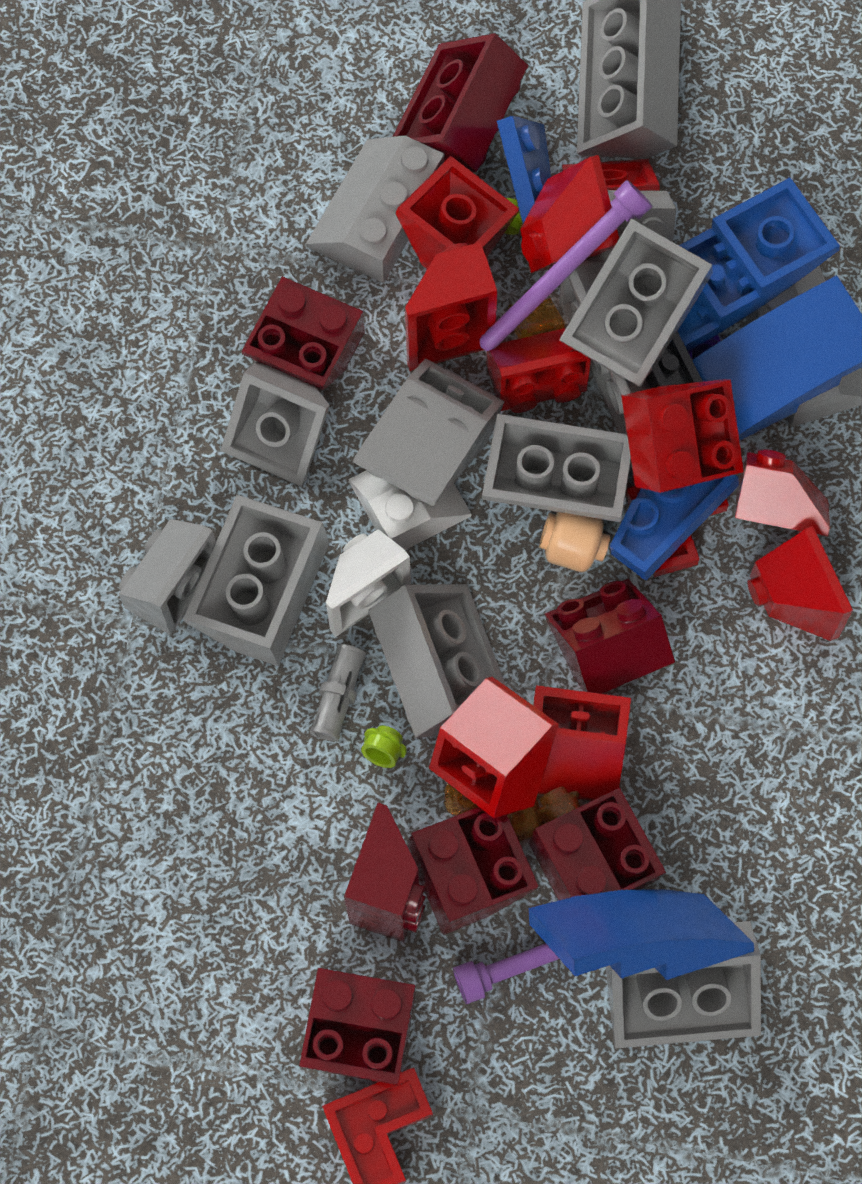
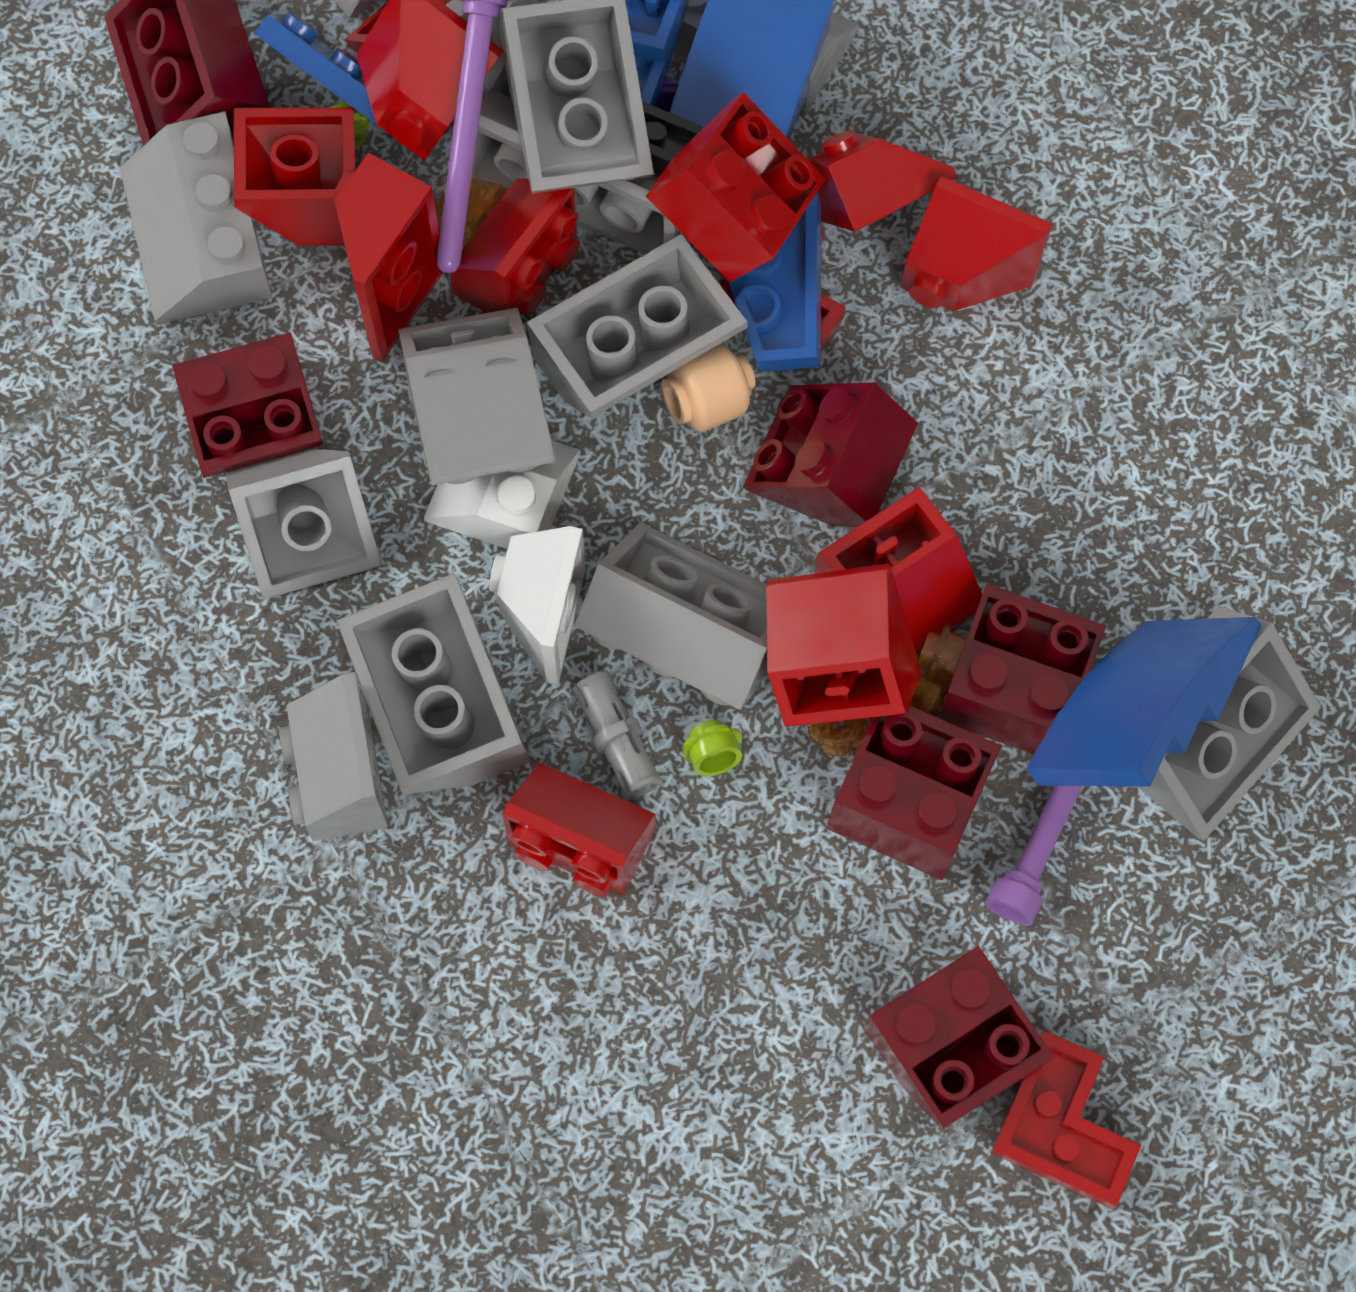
camera: 45 degrees left, 0 degrees up
(266, 725) = (577, 830): none -> red slope
(385, 882) = (858, 864): dark red slope -> none

